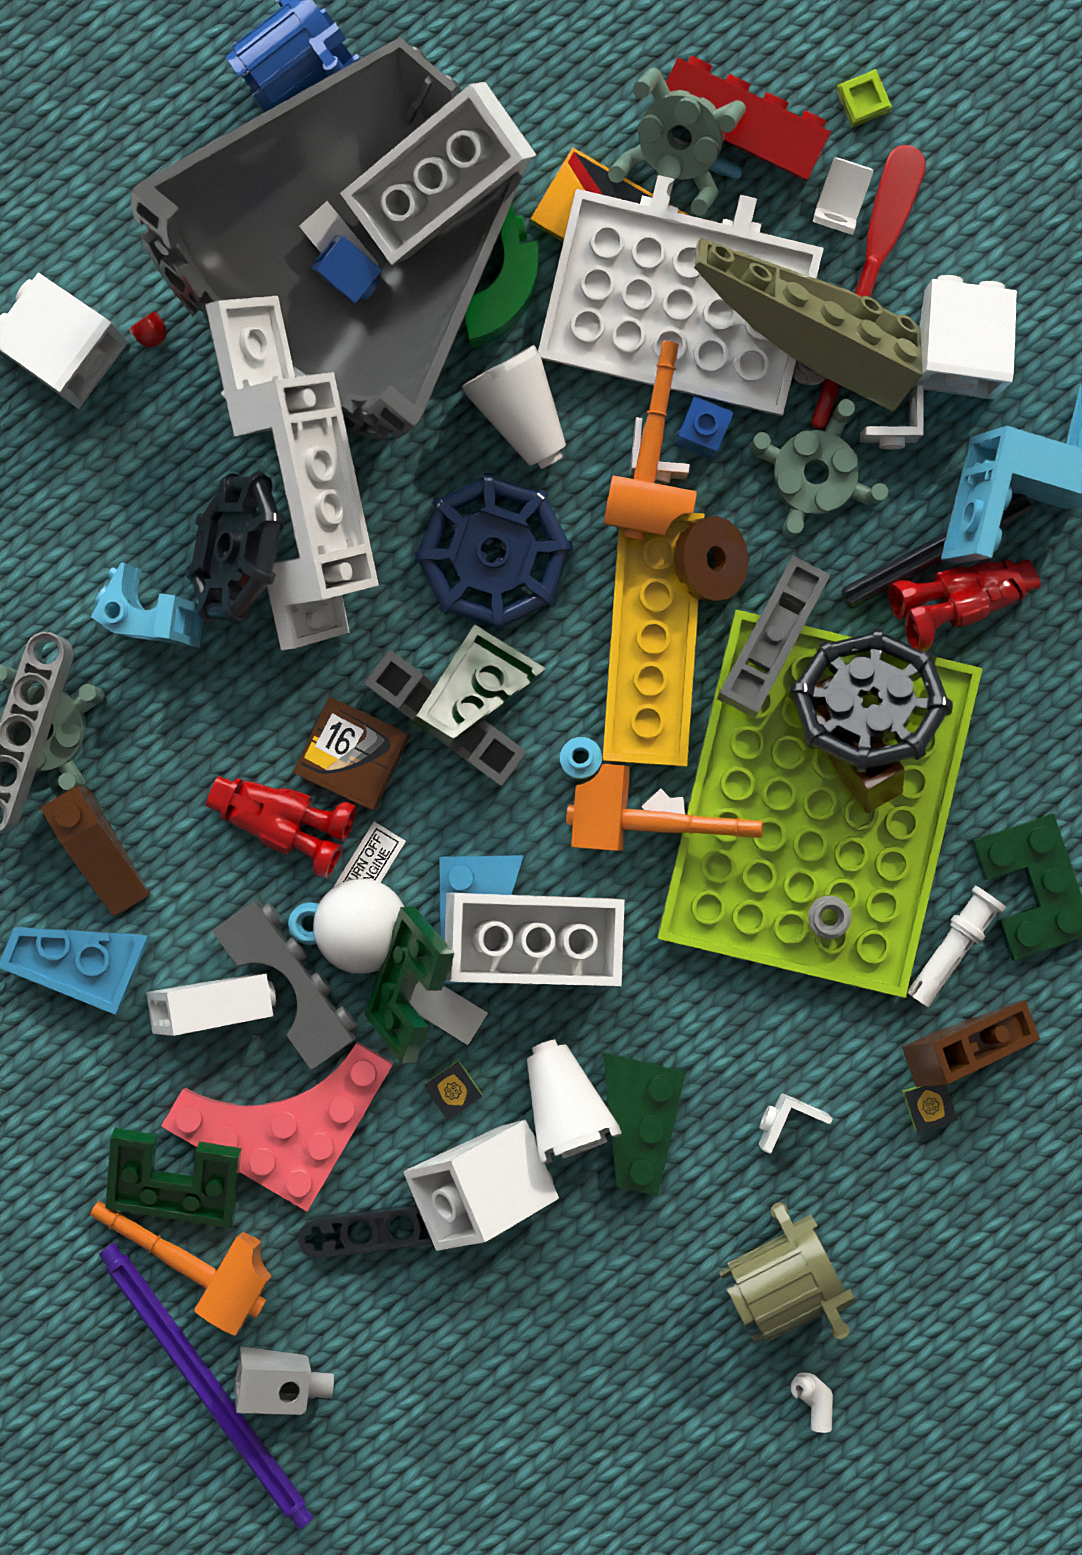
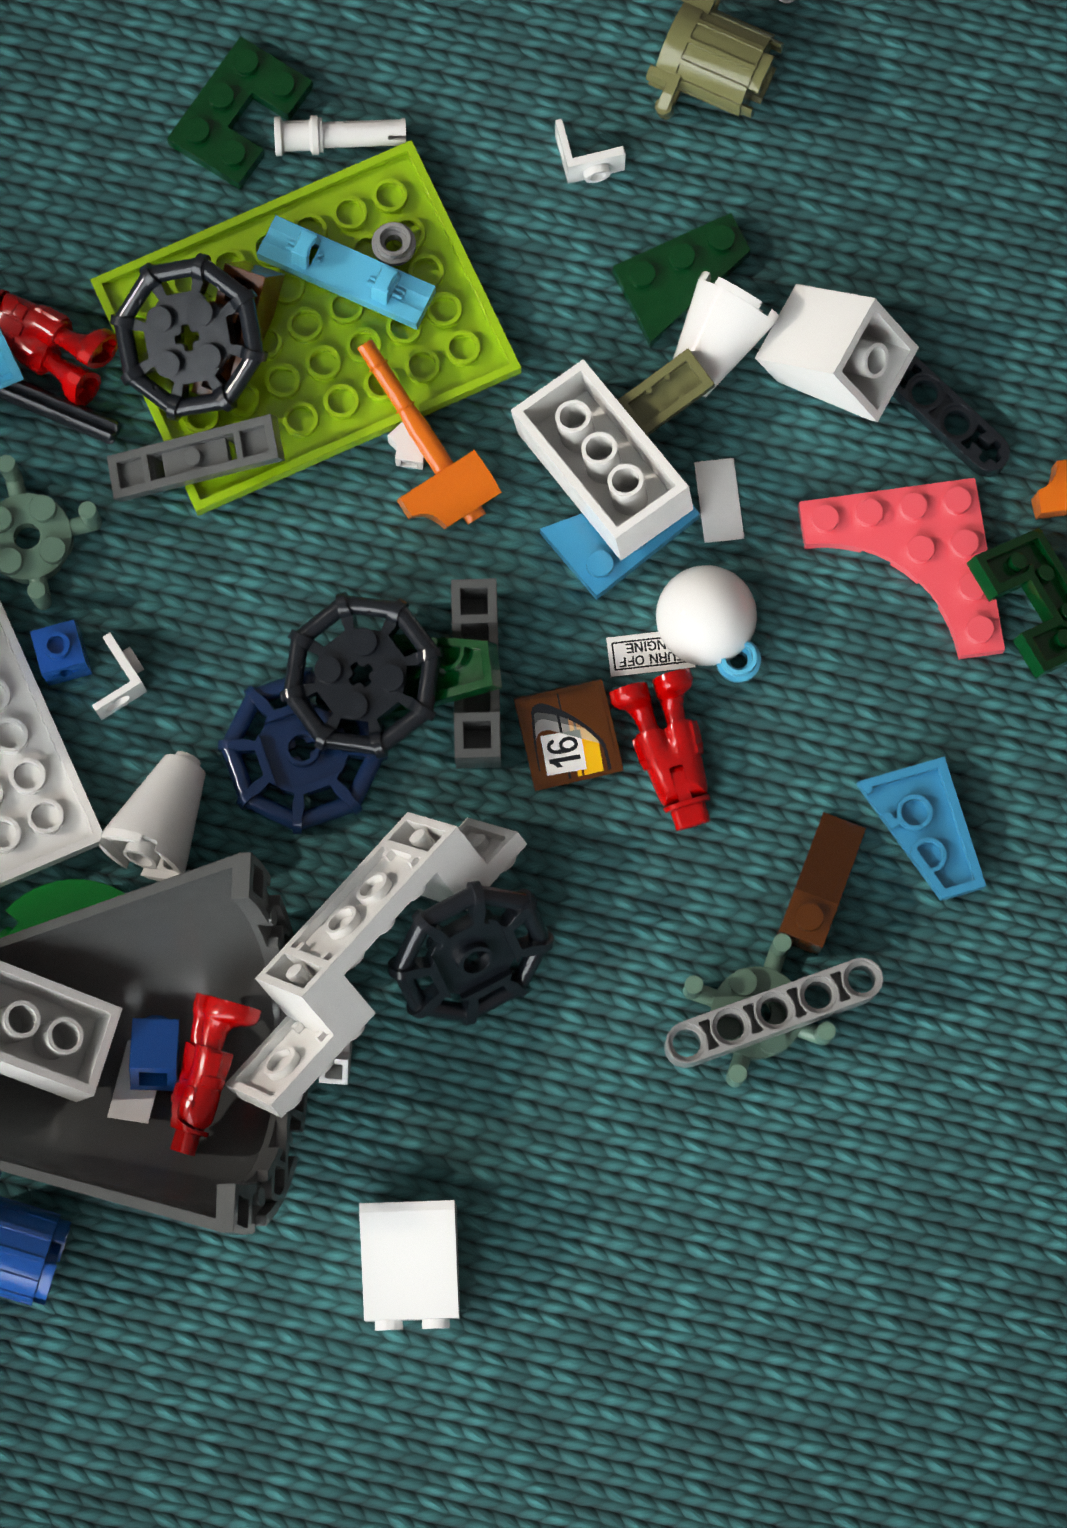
camera: 125 degrees left, 10 degrees down
(120, 611) = (583, 964): medium azure tile -> none
(149, 330) = (339, 1193): red hinge -> none
(210, 1004) = (873, 685): white slope -> none
(256, 938) = (818, 586): dark grey arch -> none
(301, 291) = (205, 1068): none -> red piece
(413, 956) = (692, 545): dark green plate -> none
(453, 1090) = (779, 439): black tile -> none
(502, 607) = (336, 669): none -> black plate
(546, 1027) = (667, 392): none -> olive tile
(584, 770) = (434, 548): medium azure plate -> none
(639, 503) = (167, 649): orange piece -> none
(650, 653) = (272, 562): yellow plate -> none
(729, 553) = (146, 561): reddish brown tile -> none
(835, 864) = (346, 272): none -> medium azure hinge
(929, 1106) = (483, 61): black tile -> none
(970, 1045) = (410, 63): reddish brown slope -> none

